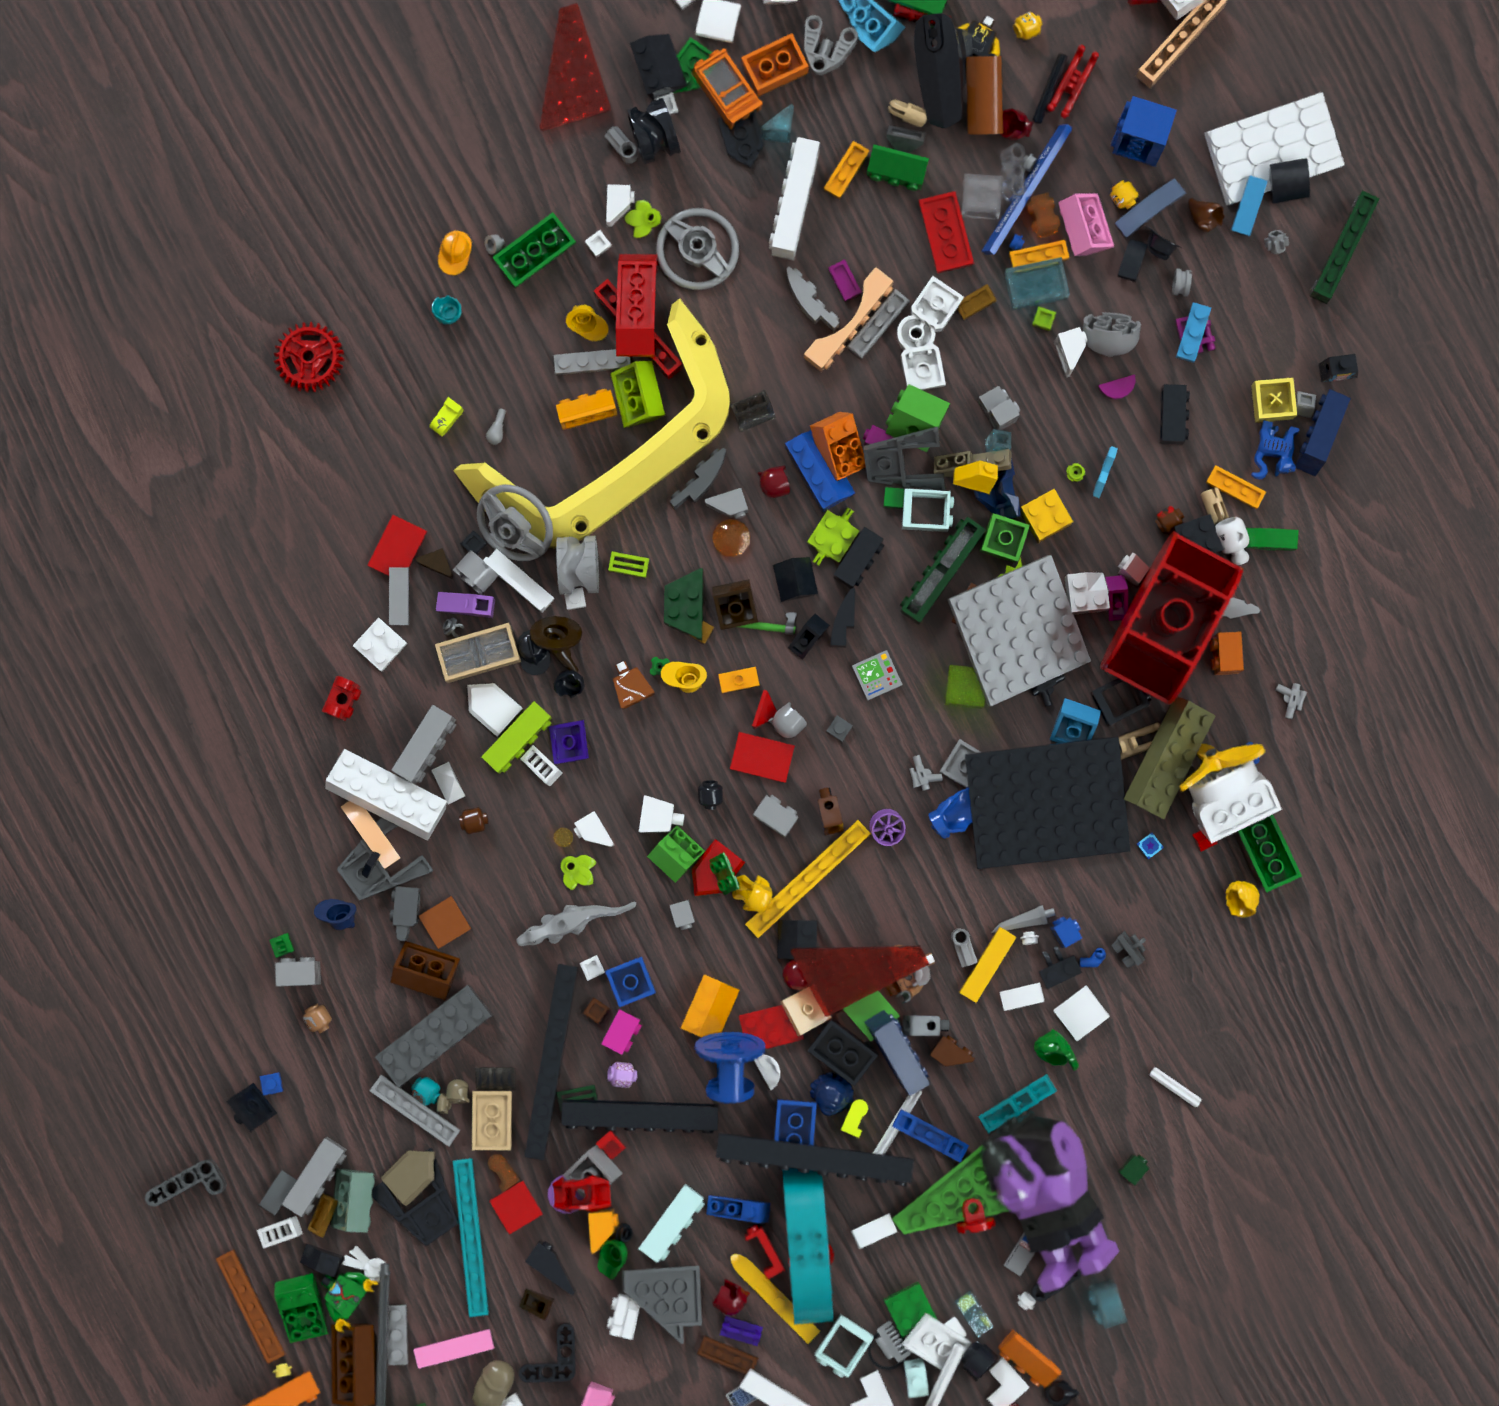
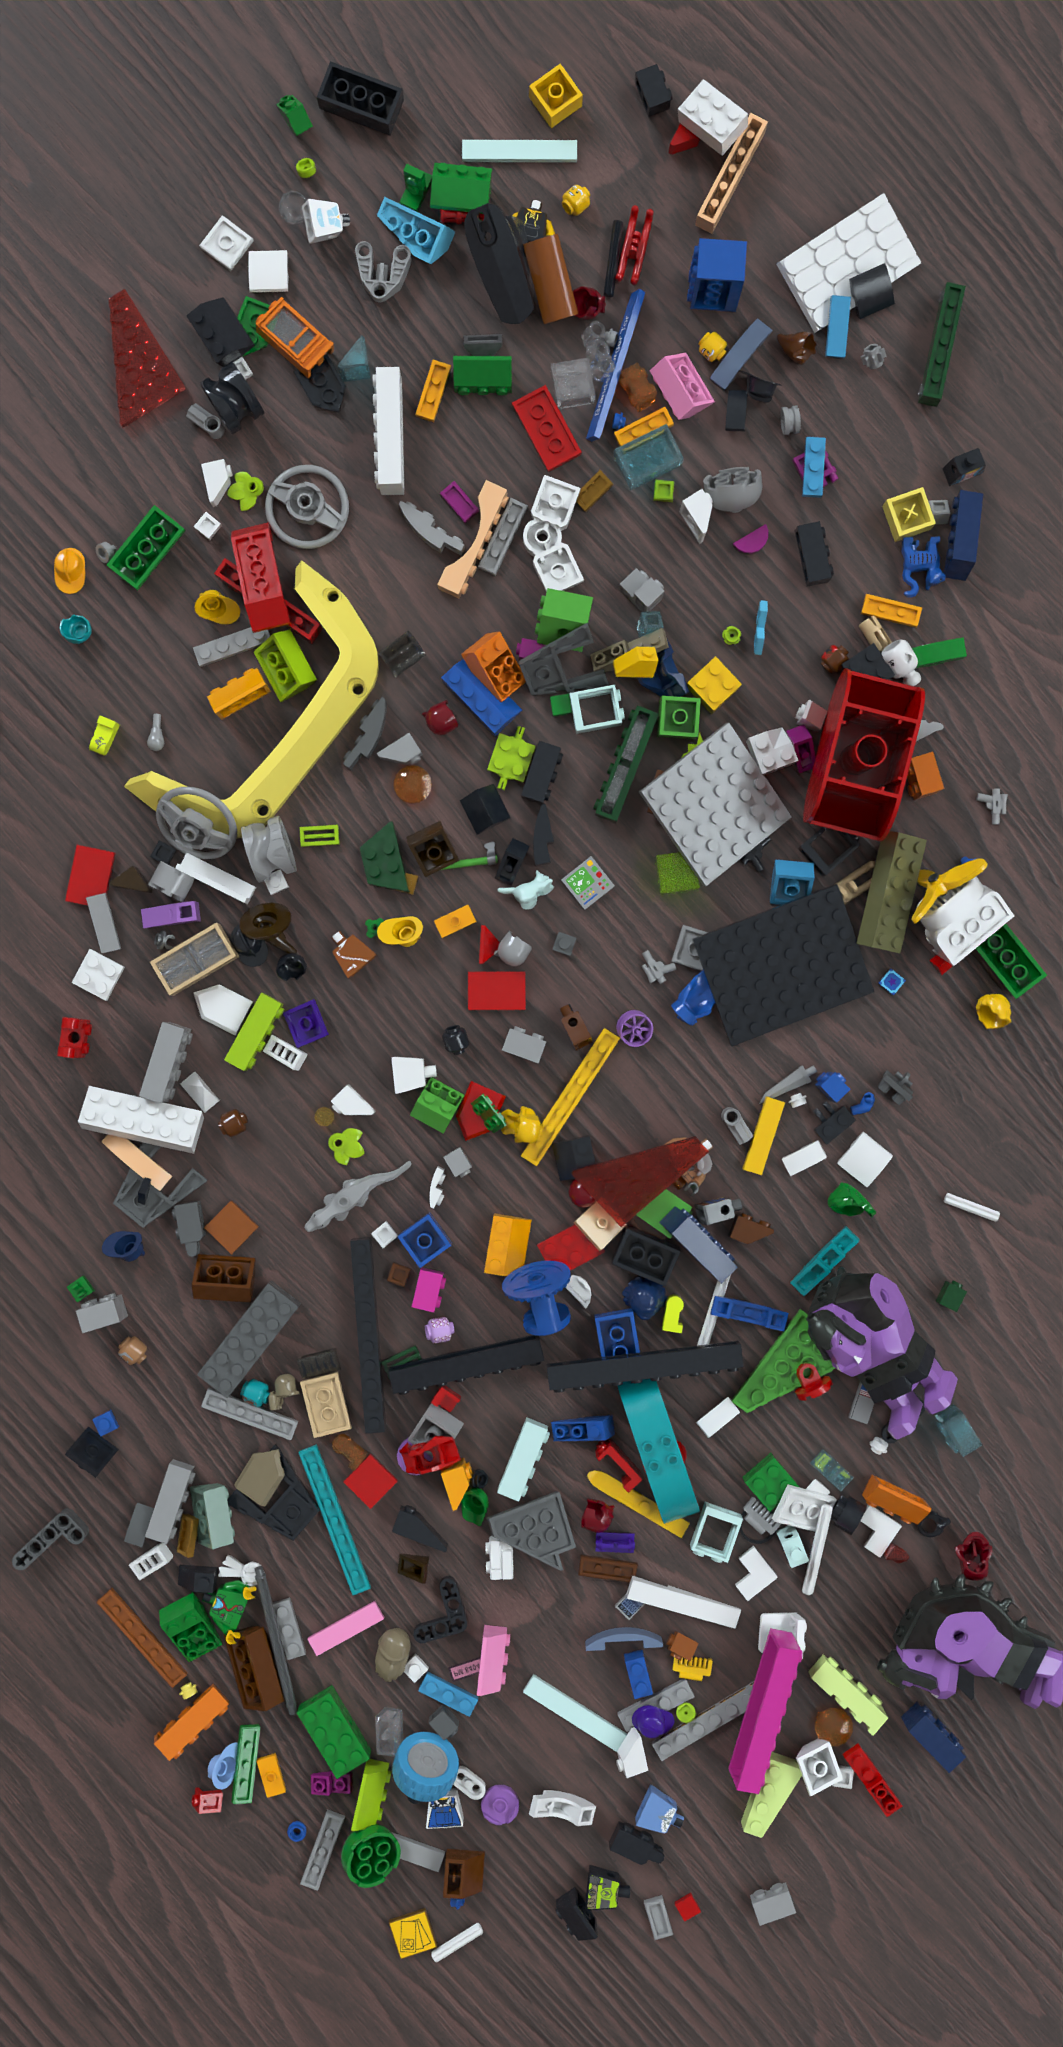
camera: 15 degrees left, 5 degrees up
(652, 939) = (435, 1192): none -> white slope
(774, 65) = (335, 302): orange brick -> none
(817, 669) = (527, 893): none -> light aqua animal
(908, 112) = (480, 317): tan arm -> none

